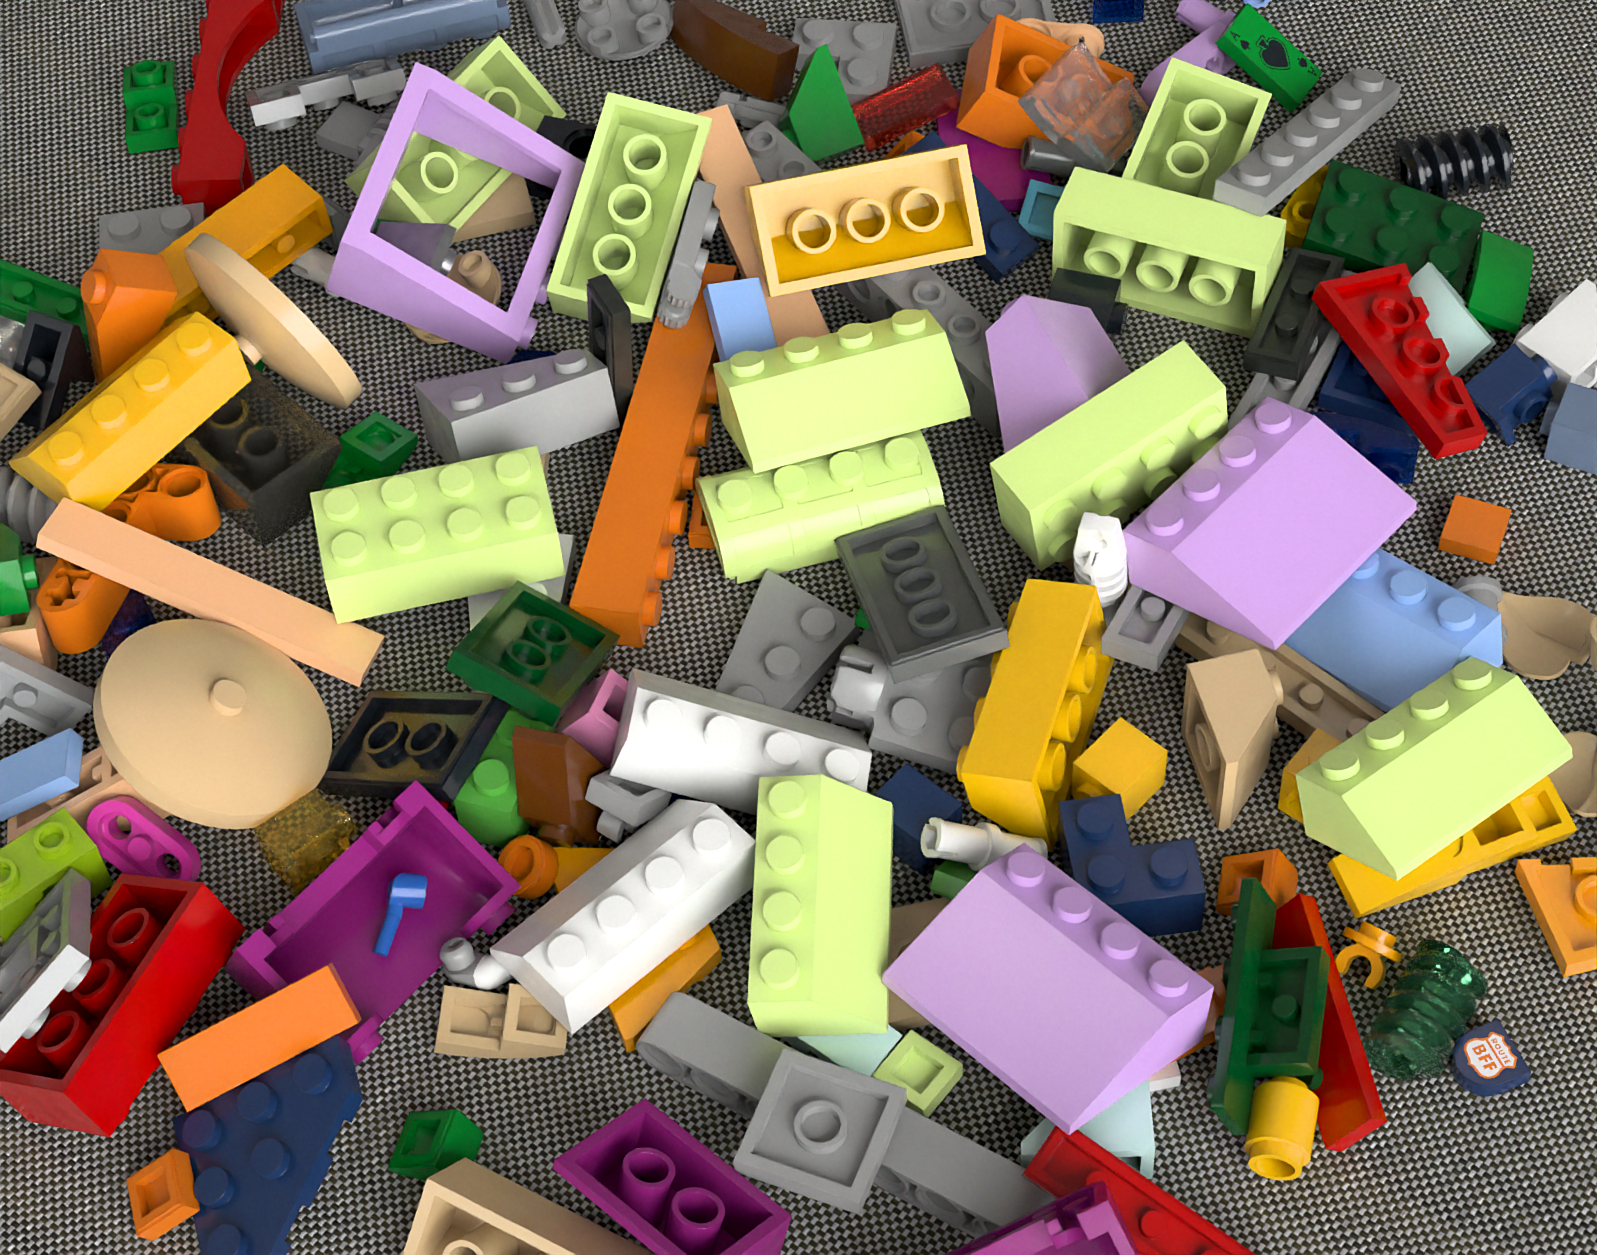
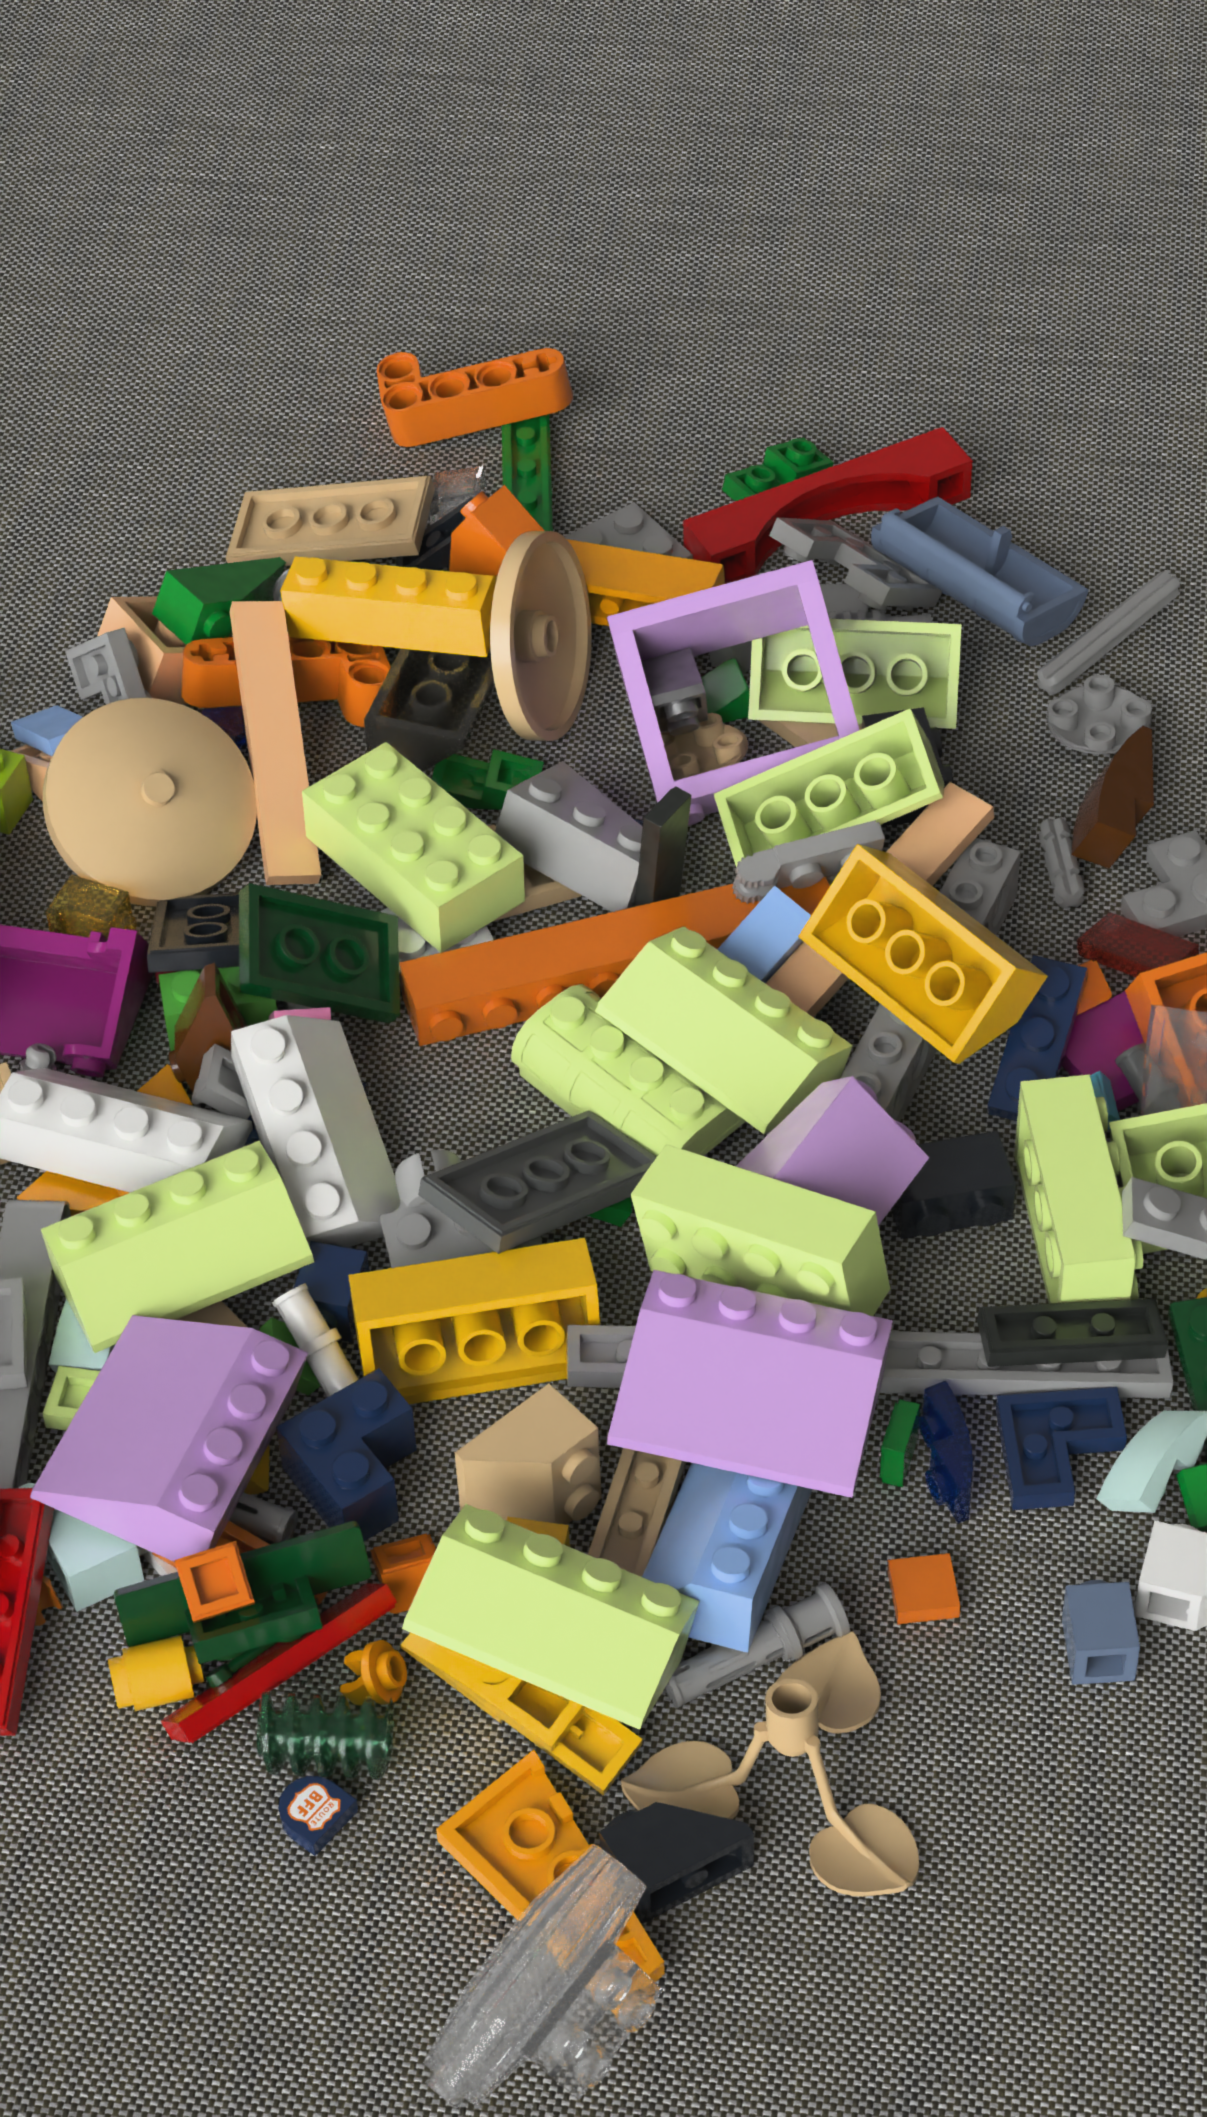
camera: 60 degrees right, 5 degrees down
(145, 847) = (27, 840): dark pink plate -> none
(404, 891) = (72, 993): blue hand -> none
(531, 864) = (144, 1063): orange tile -> none
(785, 645) = (457, 1123): light grey wing -> none
(819, 112) = (1064, 886): green slope -> none
(1102, 560) = (632, 1275): white hinge -> none
(1122, 764) = (456, 1409): yellow brick -> none
(1255, 1015) = (214, 1582): none -> orange tile
(1395, 346) = (1077, 1426): red wing -> none
(1511, 391) = (1093, 1544): dark blue brick -> none

